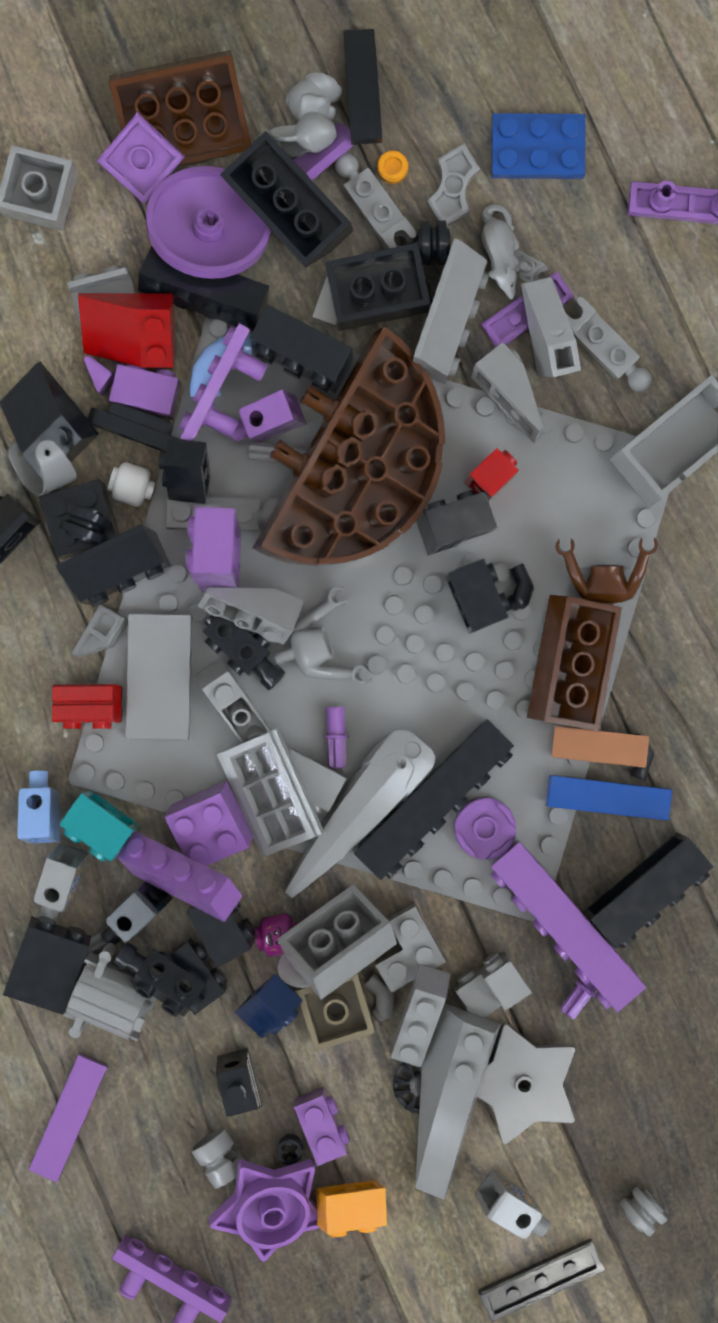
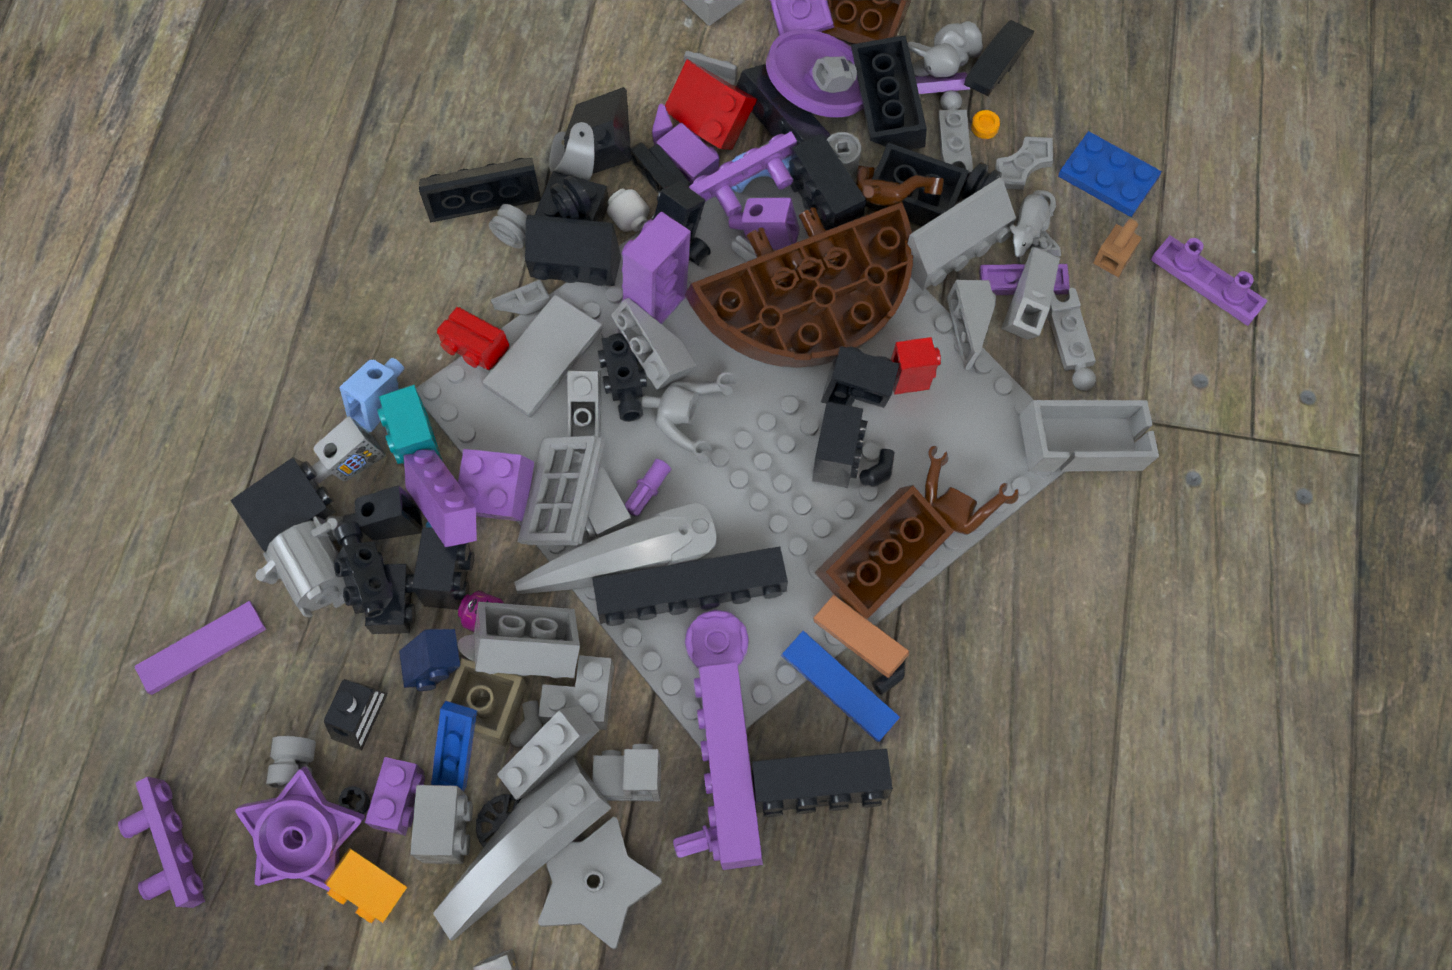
camera: 30 degrees right, 20 degrees down
(38, 572) = (509, 226): none -> light grey wheel
(222, 486) = (698, 250): none -> black axle
(228, 221) = (834, 74): none -> light grey rock
(289, 296) = (847, 149): none -> light grey wheel
(343, 1063) = (453, 745): none -> blue plate
(362, 321) = (890, 193): none -> reddish brown piece
(376, 1126) = (441, 824): none -> light grey brick
(594, 226) = (1118, 248): none -> medium nougat brick

